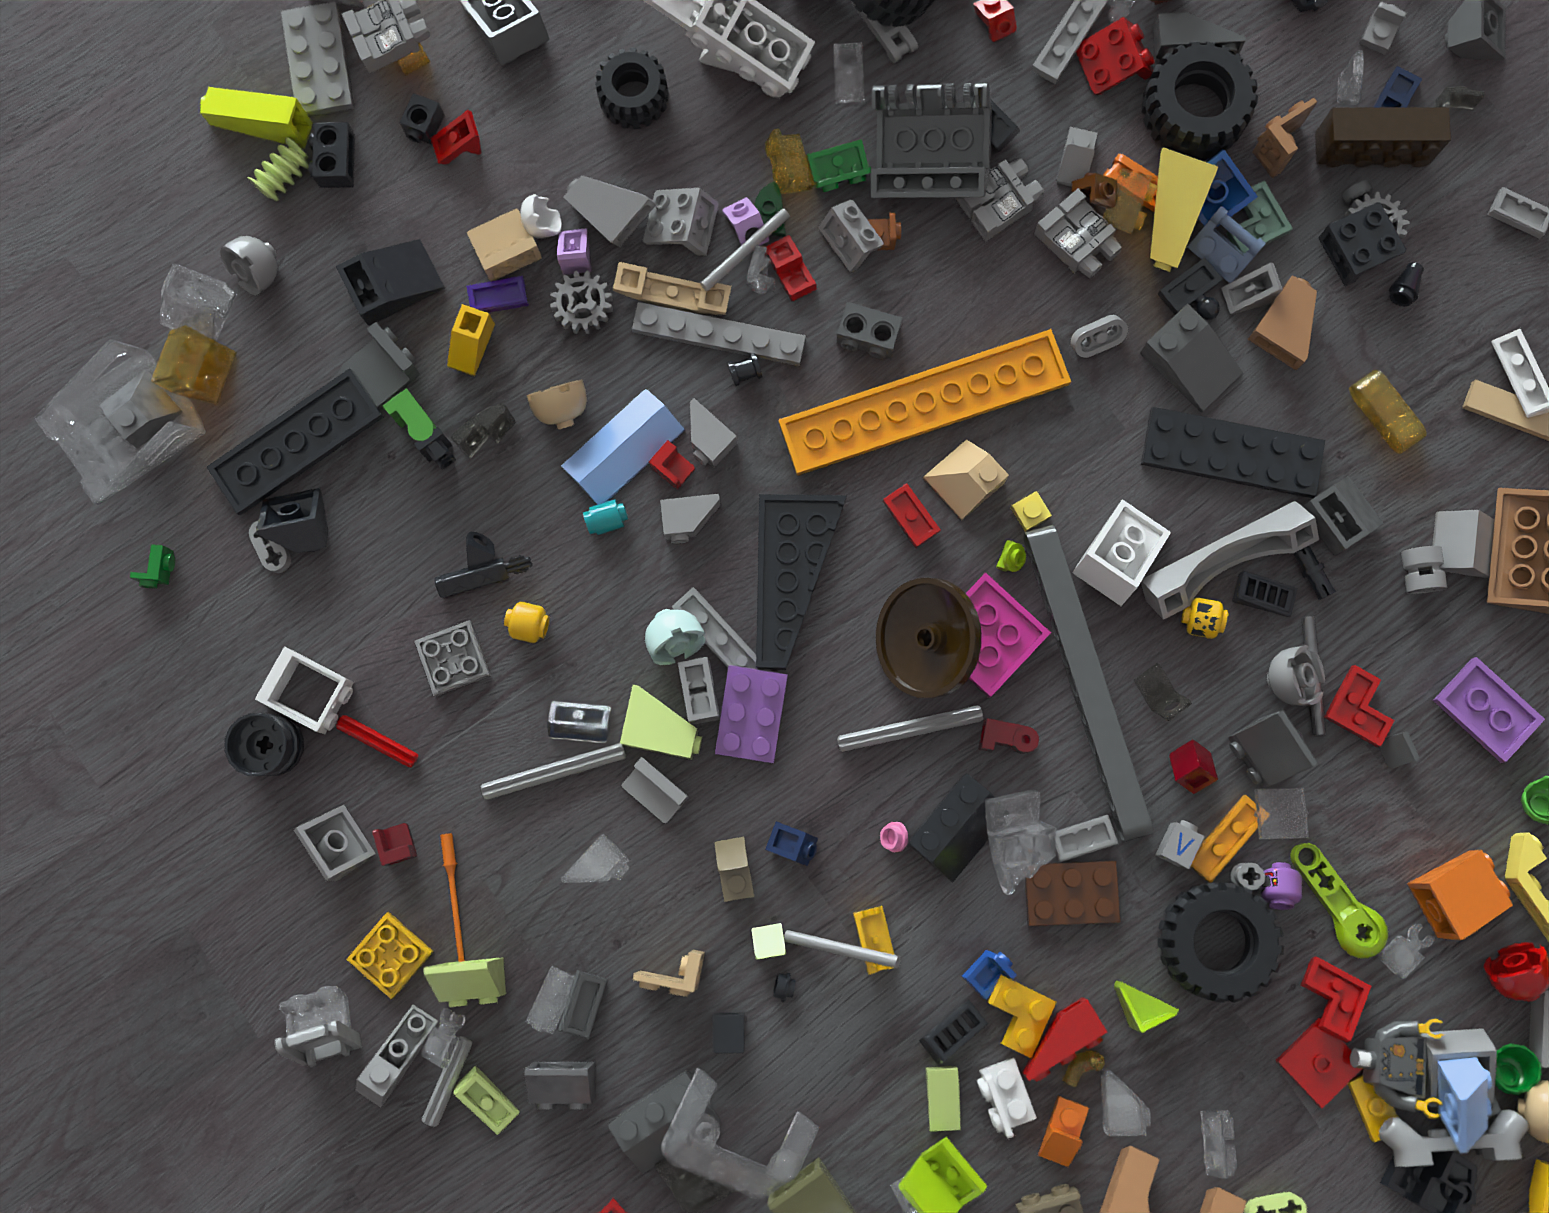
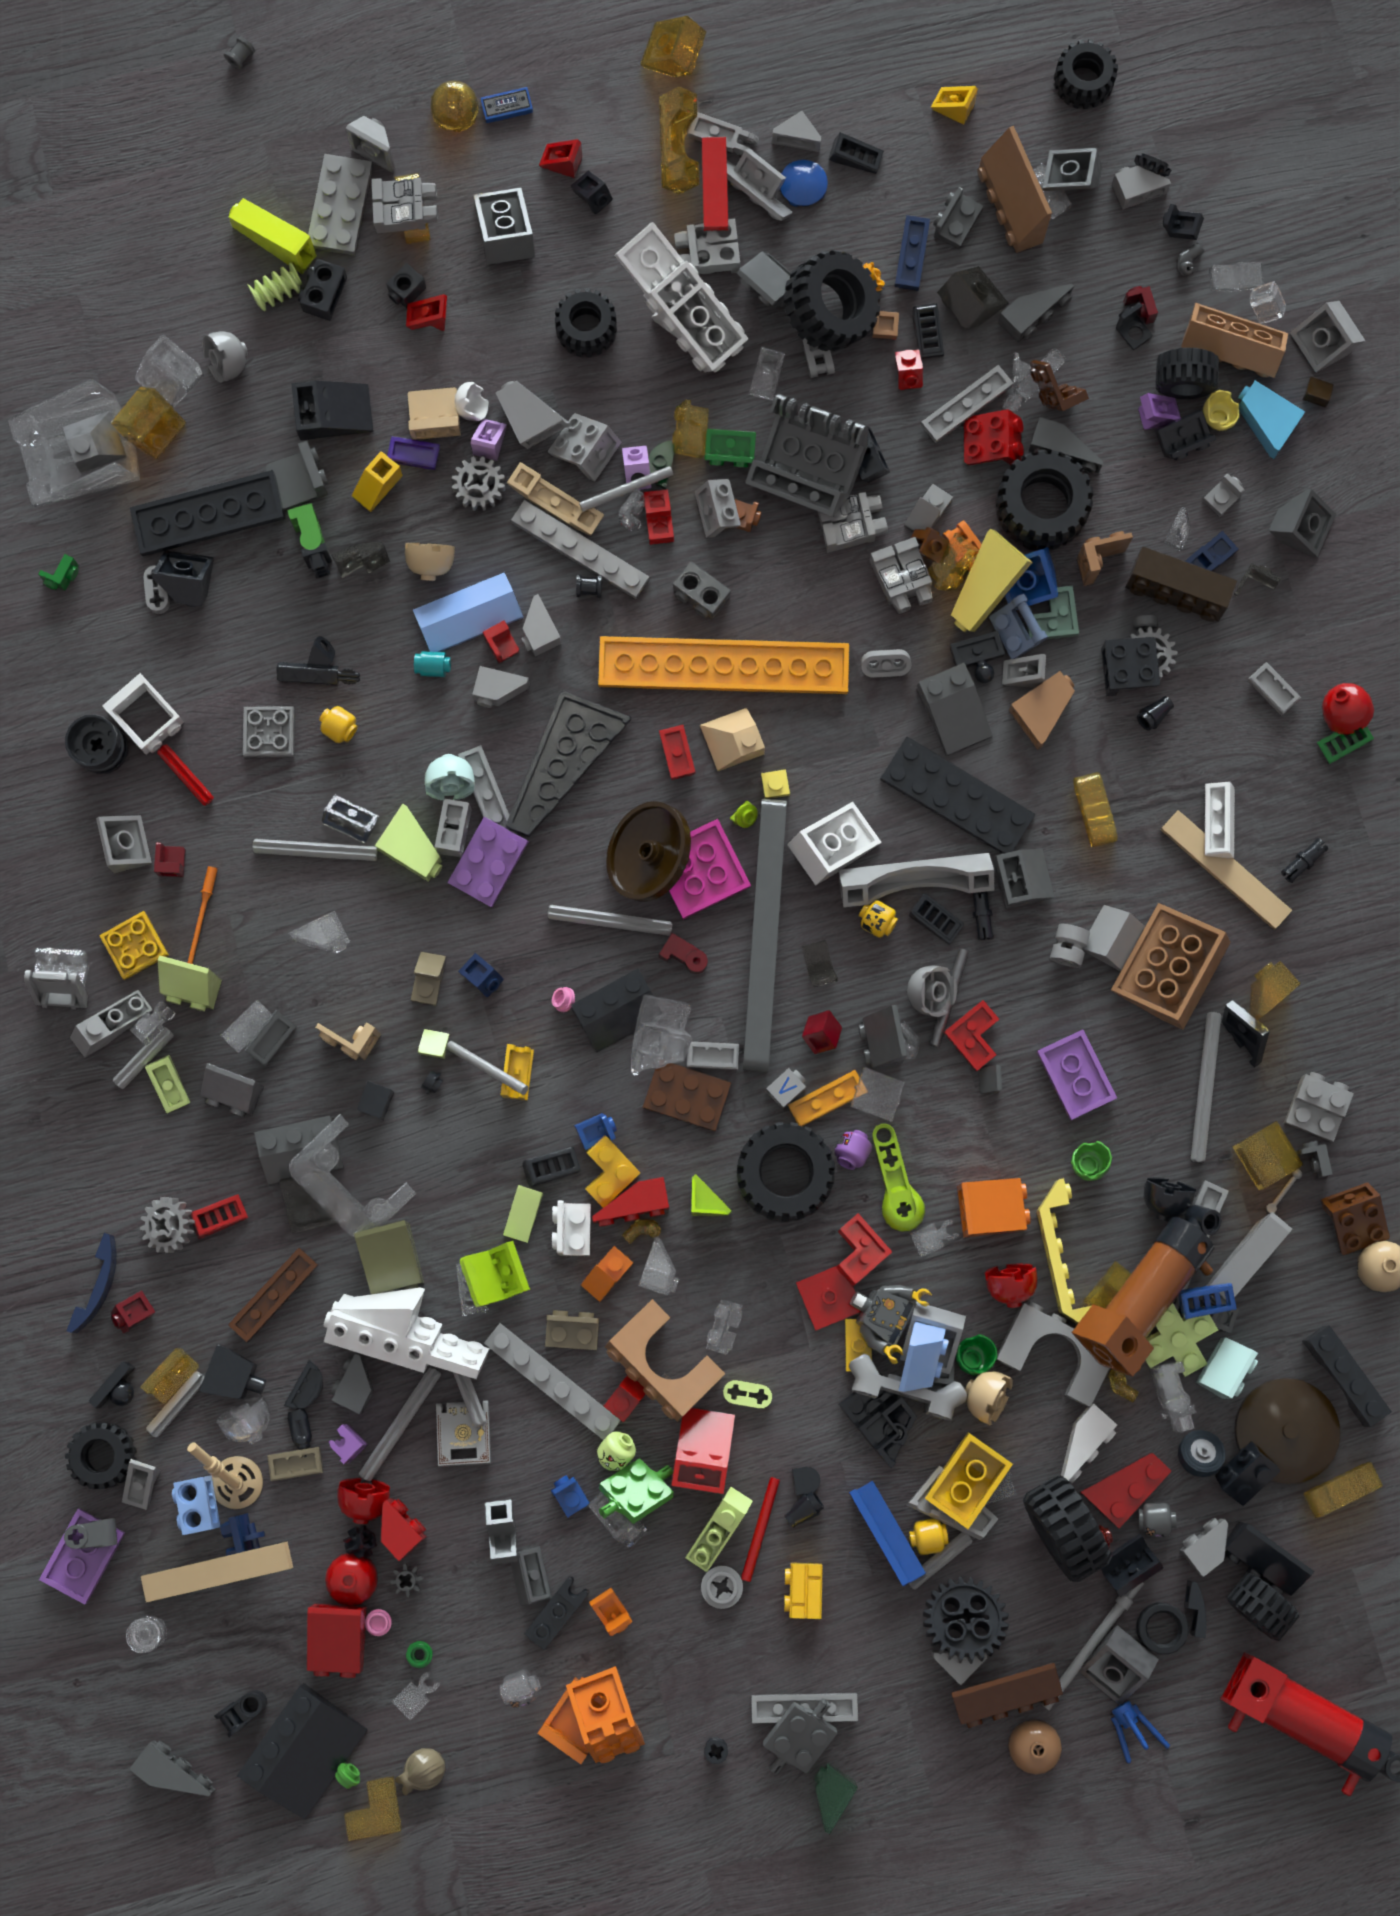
camera: 15 degrees right, 0 degrees up
(654, 791) = (389, 894): light grey panel -> none
(1257, 875) = (833, 1139): light grey bush -> none

